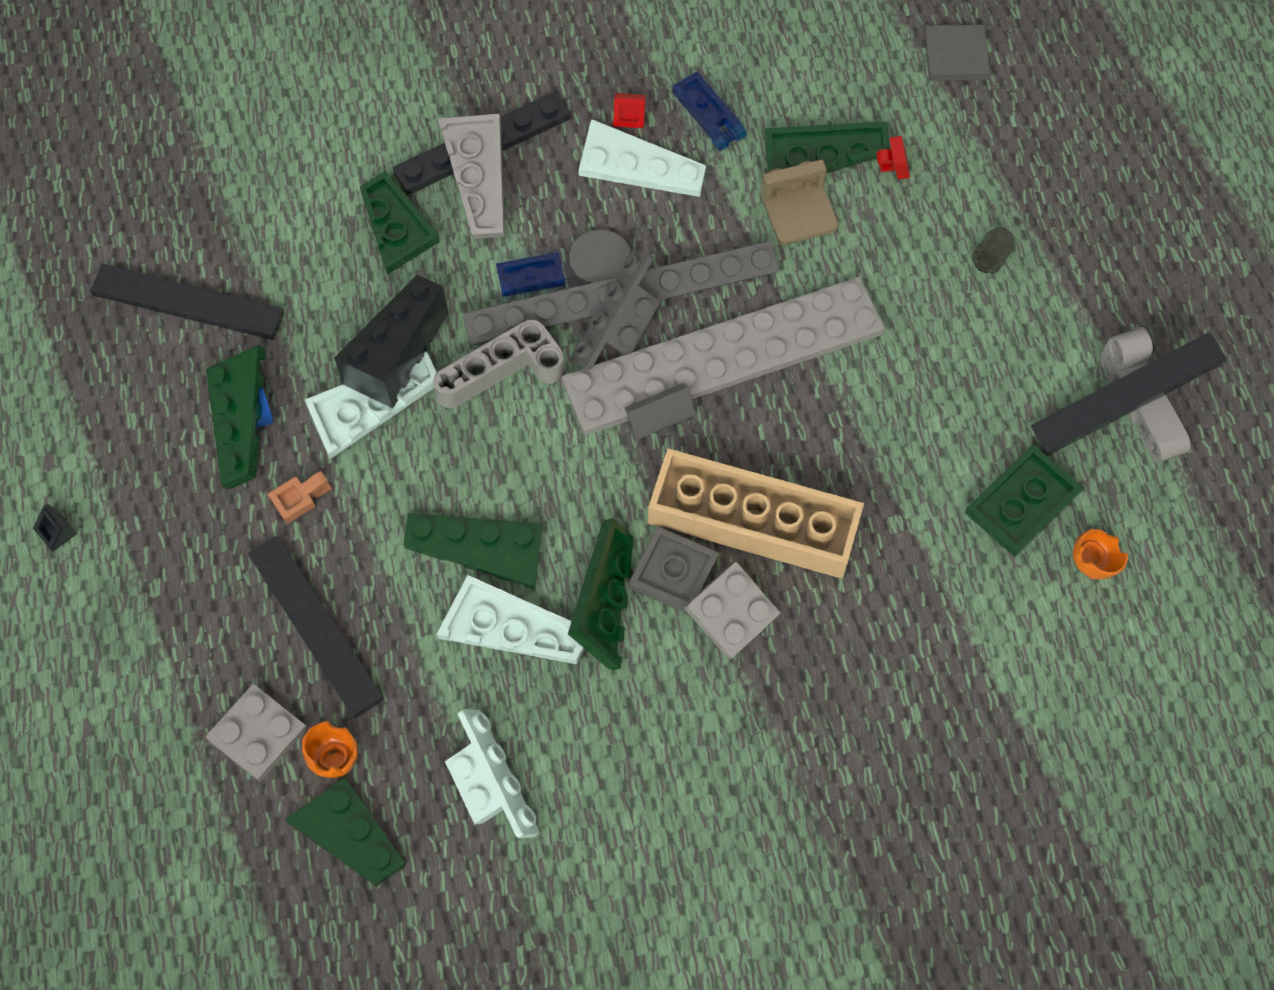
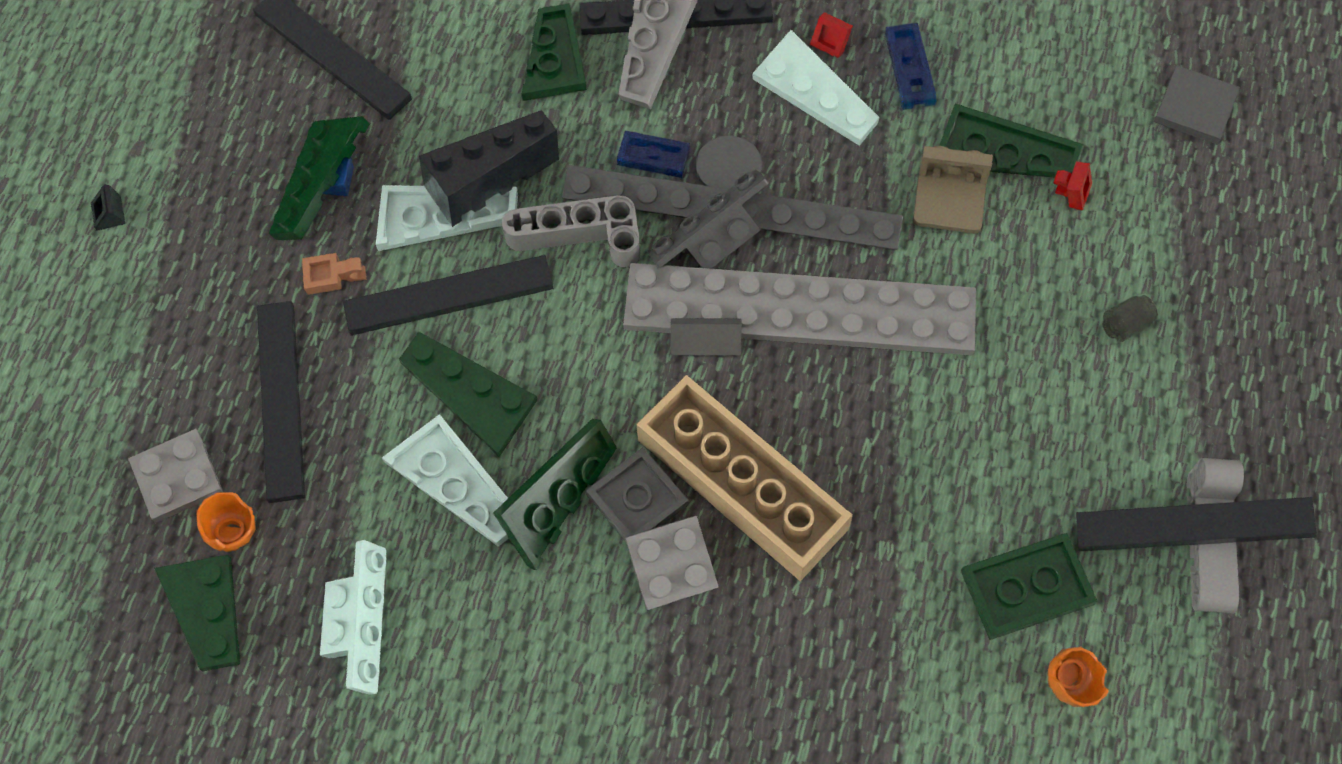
camera: 30 degrees right, 0 degrees up
(414, 471) = (447, 295): none -> black tile

